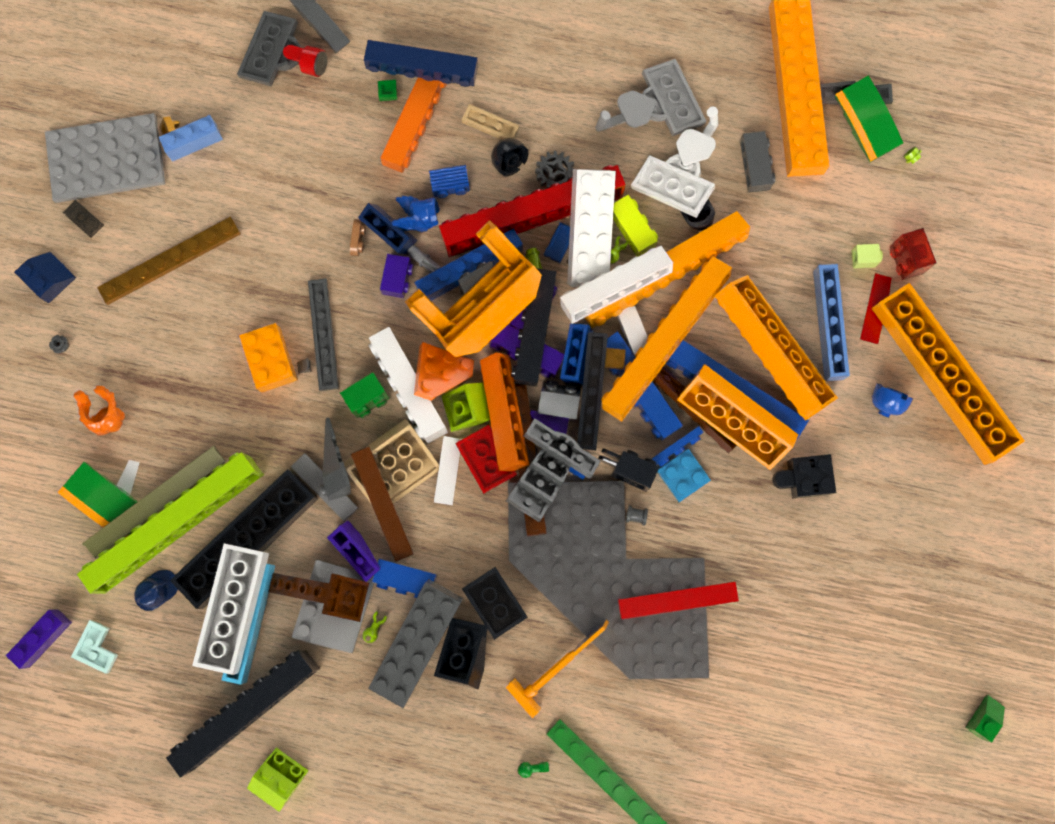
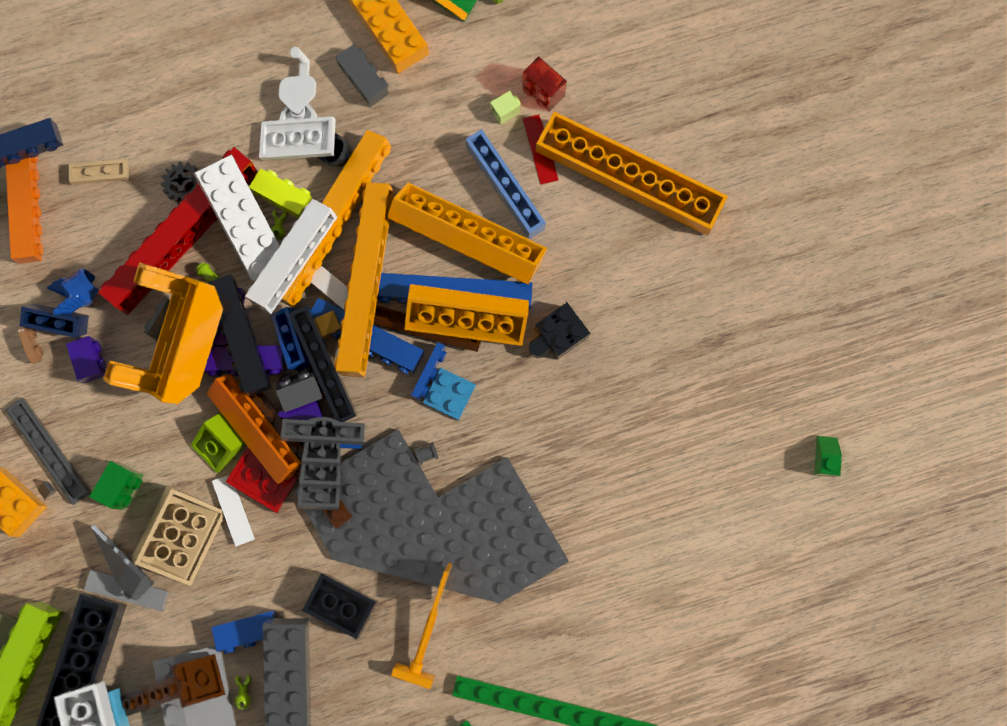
camera: 30 degrees left, 0 degrees up
(354, 550) = (184, 631): dark purple slope -> none
(382, 503) = (186, 575): reddish brown tile -> none
(403, 379) = (149, 452): white brick -> none
(423, 259) = (105, 330): light grey axle -> none
(440, 371) = (174, 424): orange plate -> none
(447, 277) = (132, 339): blue brick -> none
(449, 181) = (89, 245): blue brick -> none
(463, 654) = (336, 668): black slope -> none
(508, 156) = (131, 192): black cylinder -> none
(559, 243) = (222, 249): blue tile -> none
(631, 468) = (397, 414): black brick -> none
(665, 100) = (247, 63): light grey plate -> none
(678, 600) = (503, 508): red tile -> none
(890, 401) = (594, 225): blue cylinder -> none

